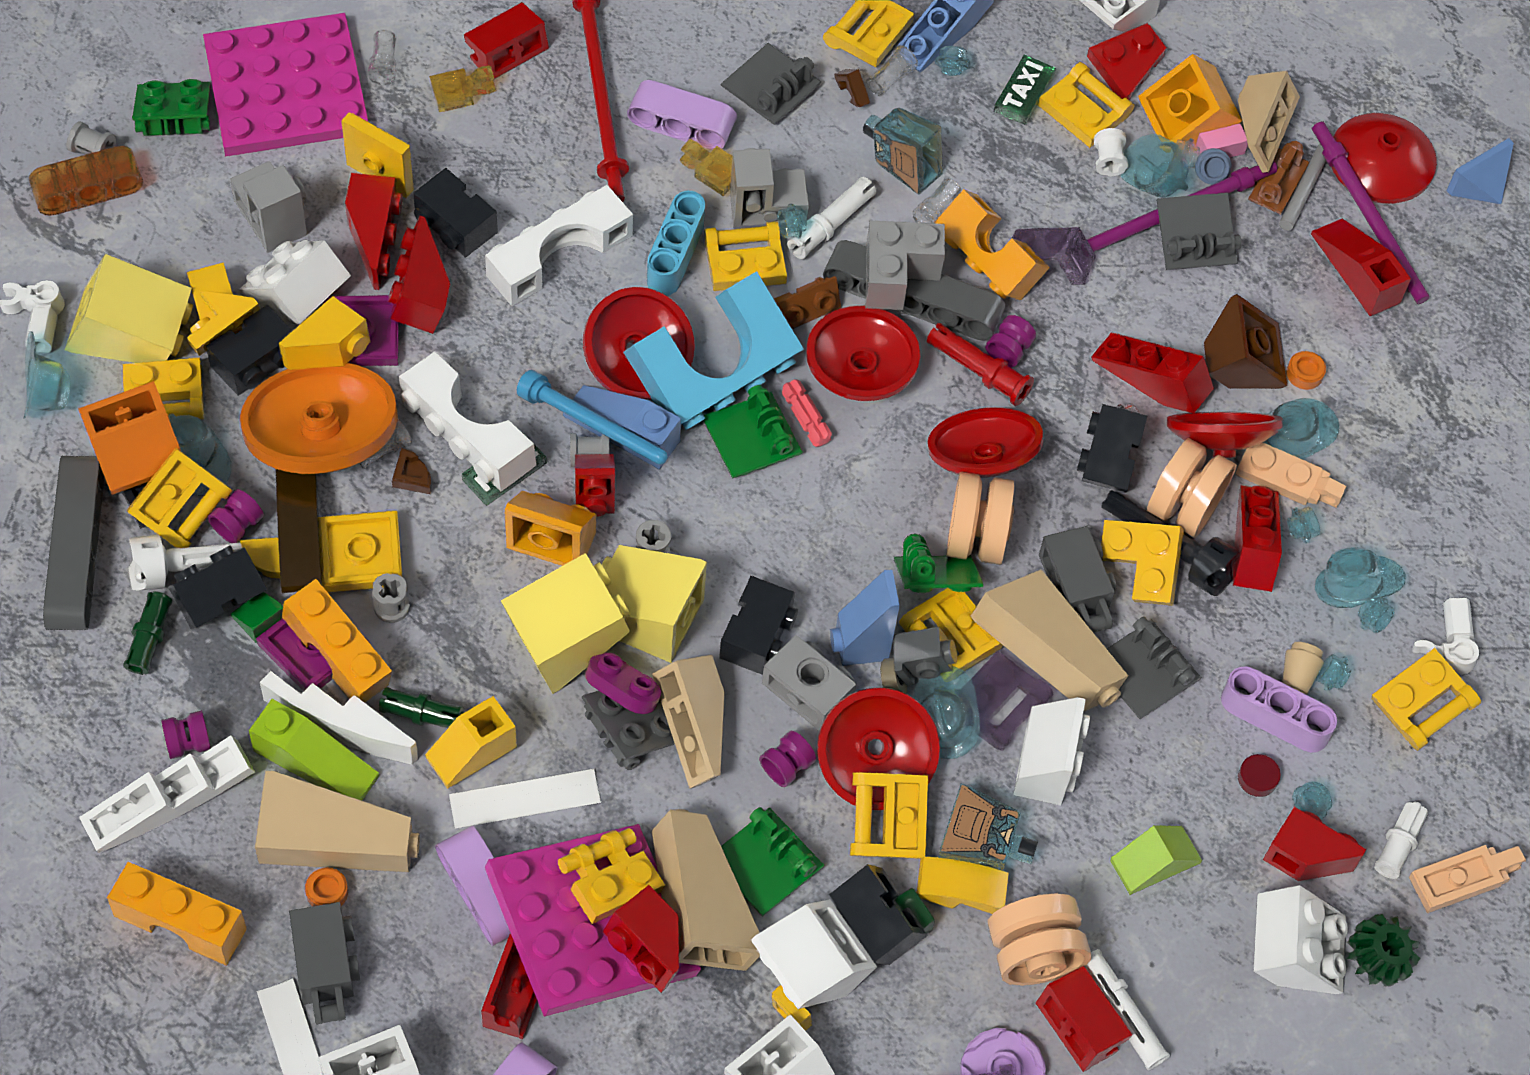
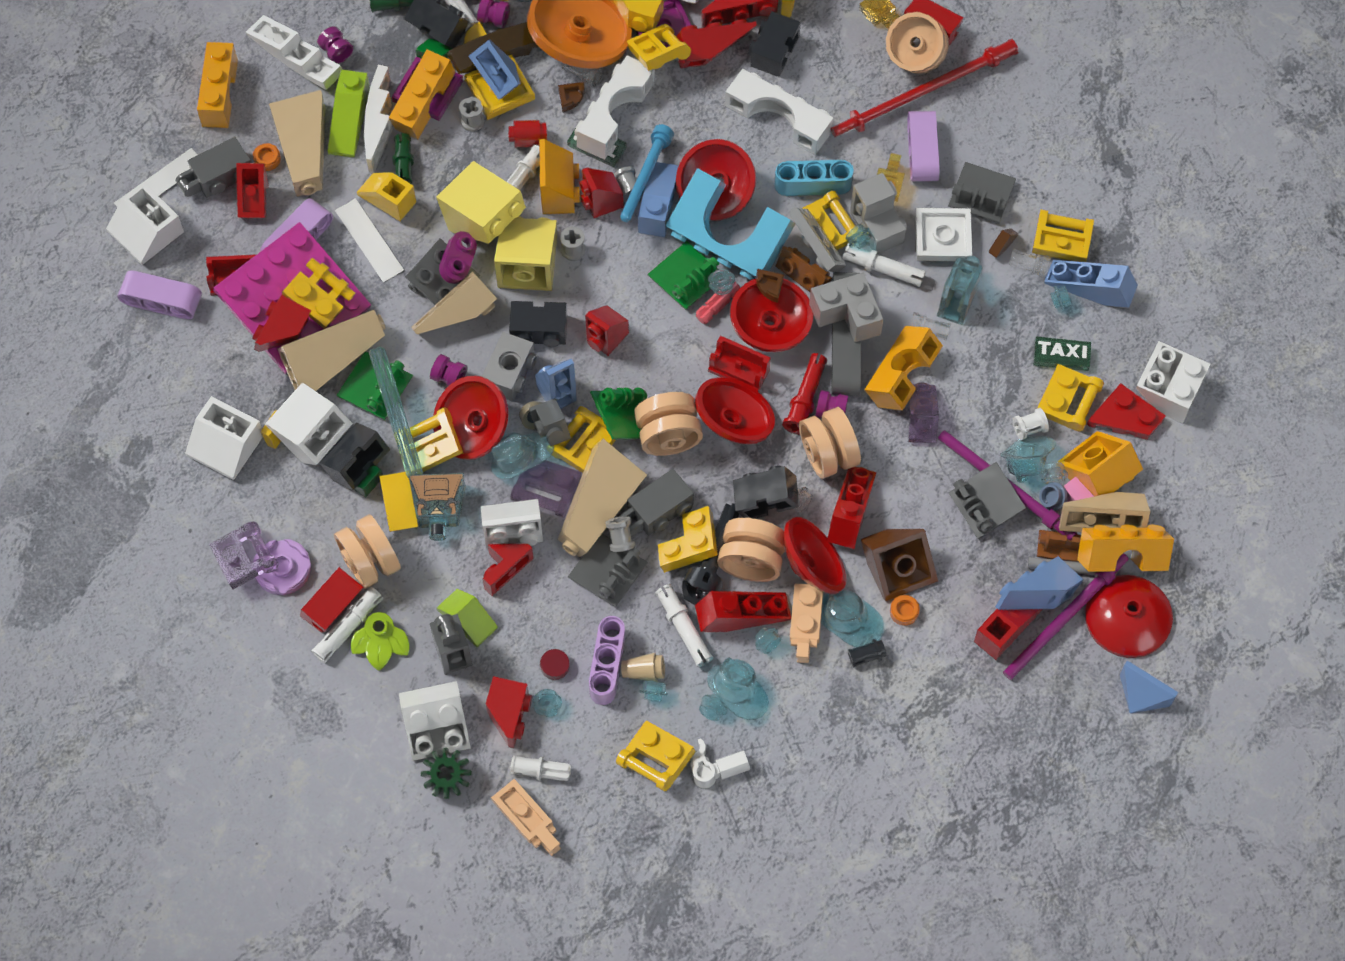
camera: 75 degrees right, 5 degrees up
(347, 536) = (496, 68): none -> medium blue slope
(388, 919) = (251, 190): none -> red slope
(410, 343) = (652, 52): none -> yellow plate
(454, 540) = (527, 133): none -> red brick
(506, 560) = (525, 168): none -> white axle
(543, 57) = (901, 41): none -> light nougat wheel
(774, 267) = (816, 239): none -> light grey hinge
(791, 400) = (724, 286): none -> clear light blue plate
(805, 546) = (605, 329): none -> red slope
(816, 141) = (943, 234): none -> white plate
(825, 336) = (769, 284): none -> reddish brown tile
(838, 836) = (395, 412): none -> clear light blue axle
(910, 419) = (739, 363): none -> red hinge
(1072, 353) = (830, 442): none -> light nougat wheel
(1104, 777) = (510, 560): none -> red slope
(1123, 630) = (620, 534): none -> light grey bush
(1165, 976) = (381, 644): none -> lime plate
(1208, 879) = (450, 643): none -> dark grey brick
(1240, 609) = (678, 615): none -> white pin
(1316, 104) = (1103, 546): none -> light orange arch
(1334, 210) = (1044, 588): none -> medium blue slope
(1353, 423) = (867, 653): none -> black pin

